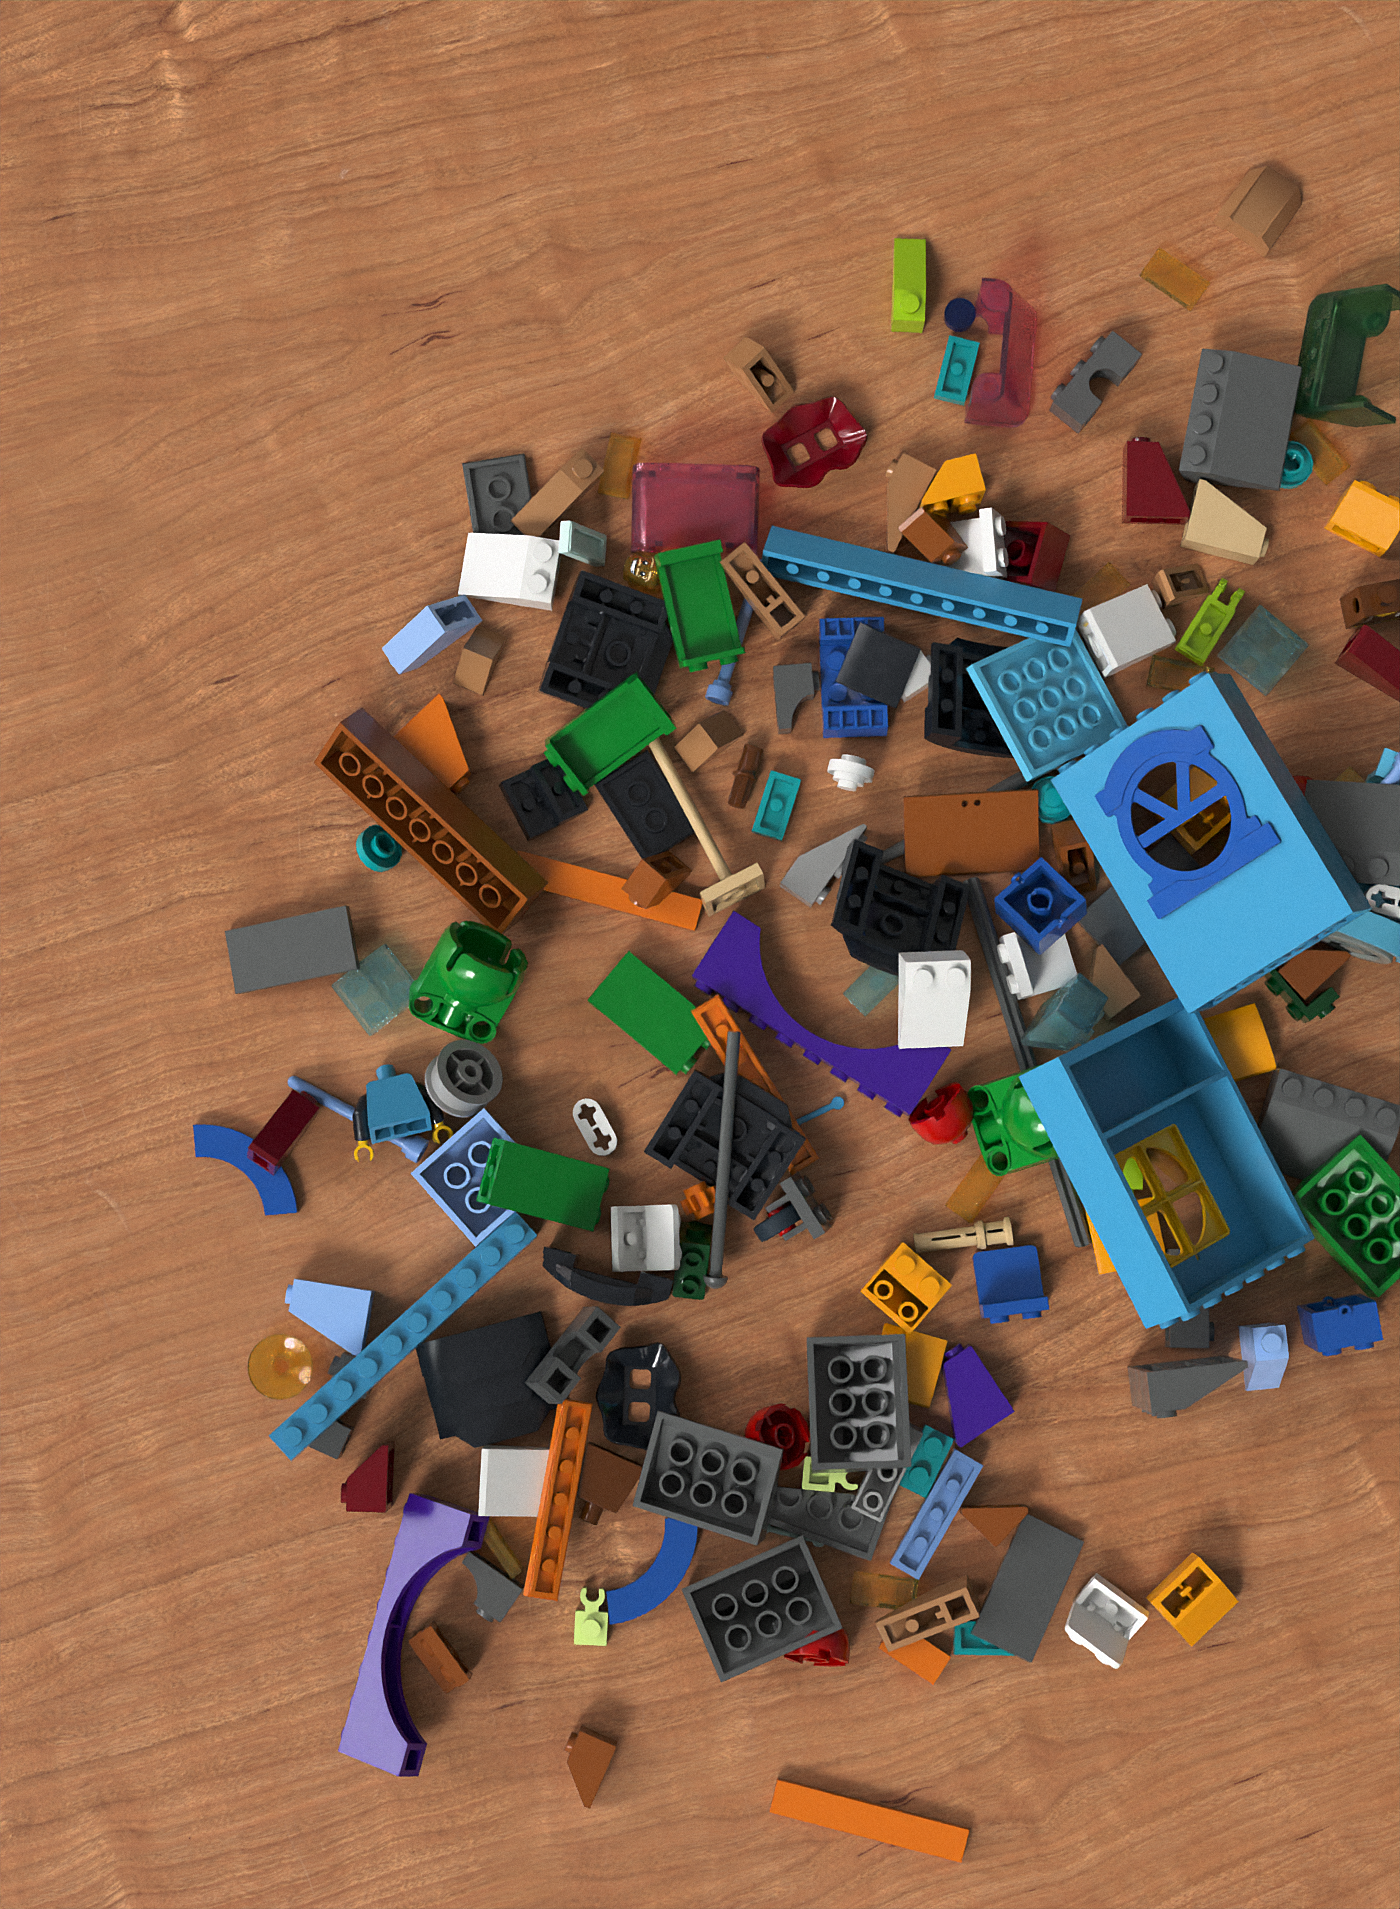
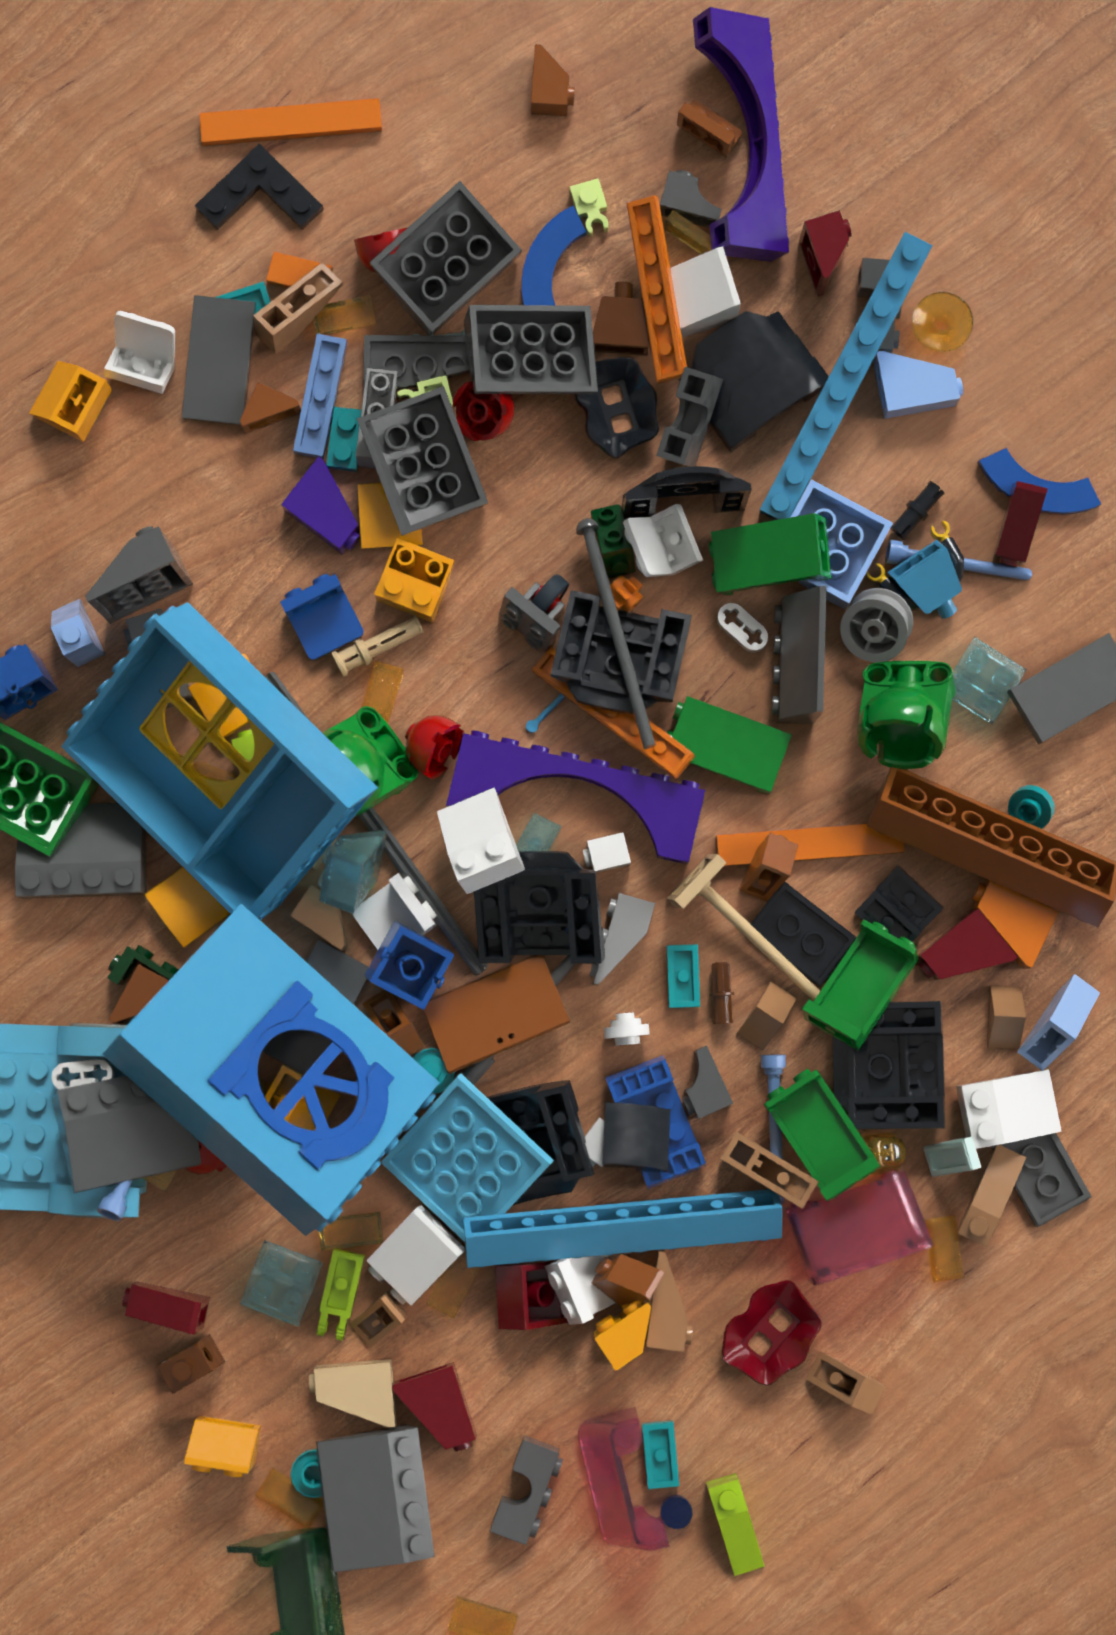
camera: 160 degrees right, 0 degrees up
(378, 1183) = (917, 510): none -> black pin
(495, 735) = (965, 948): none -> dark red slope
(551, 1072) = (800, 656): none -> dark grey slope
(809, 949) = (607, 853): none -> white brick
(920, 1777) = (251, 174): none -> black plate

